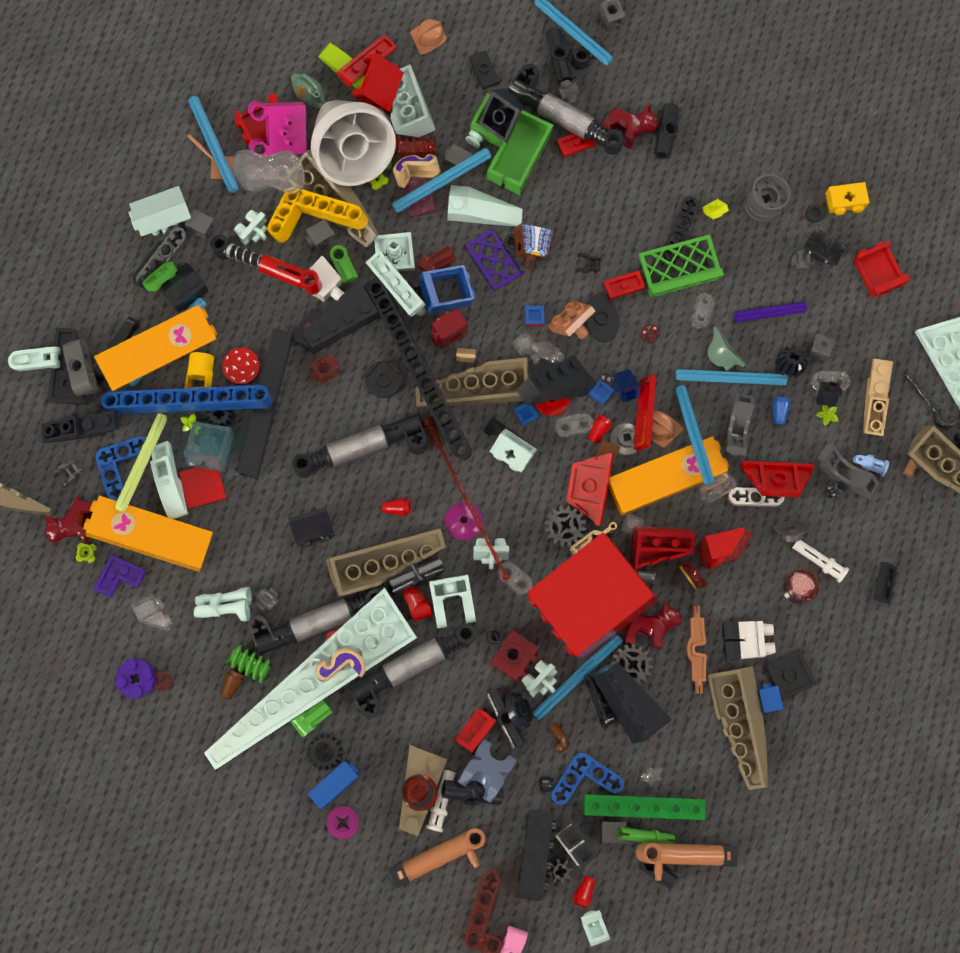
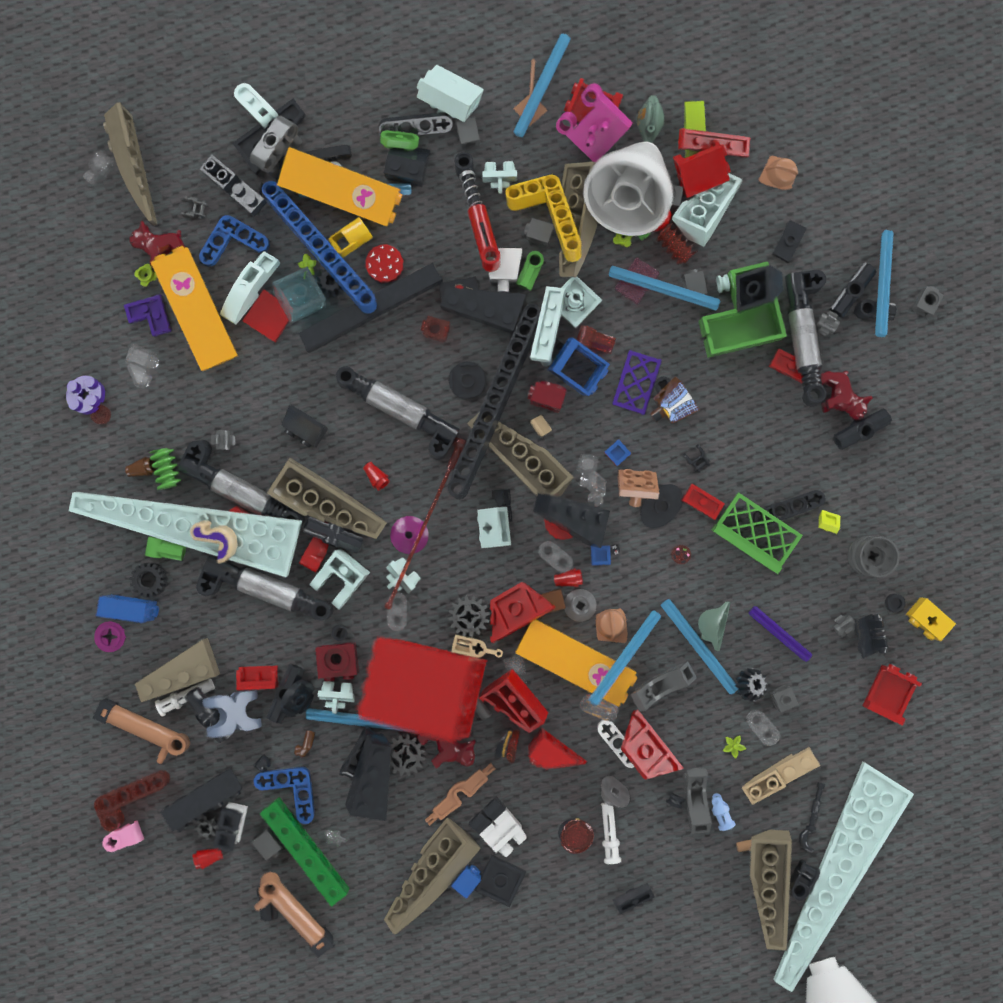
camera: 55 degrees right, 10 degrees up
(141, 462) = (242, 255): yellowish green axle -> none
(210, 604) = (198, 427): light aqua piece -> none
(275, 171) = (557, 152): clear plate -> none
(415, 167) = (658, 258): tan animal -> none
(419, 792) = (171, 677): clear red piece -> none
(477, 207) = (668, 332): light aqua wedge -> none
(526, 414) = (529, 514): blue tile -> none
(594, 927) = (187, 886): light aqua bracket -> none
(626, 386) = (620, 571): clear blue brick -> none
(645, 413) = (610, 604): red tile -> none
(652, 836) = (288, 876): bright green pin -> none
(702, 310) = (735, 579): clear plate -> none
(781, 409) = (705, 707): blue cone -> none
(828, 393) = (750, 734): black bracket -> none

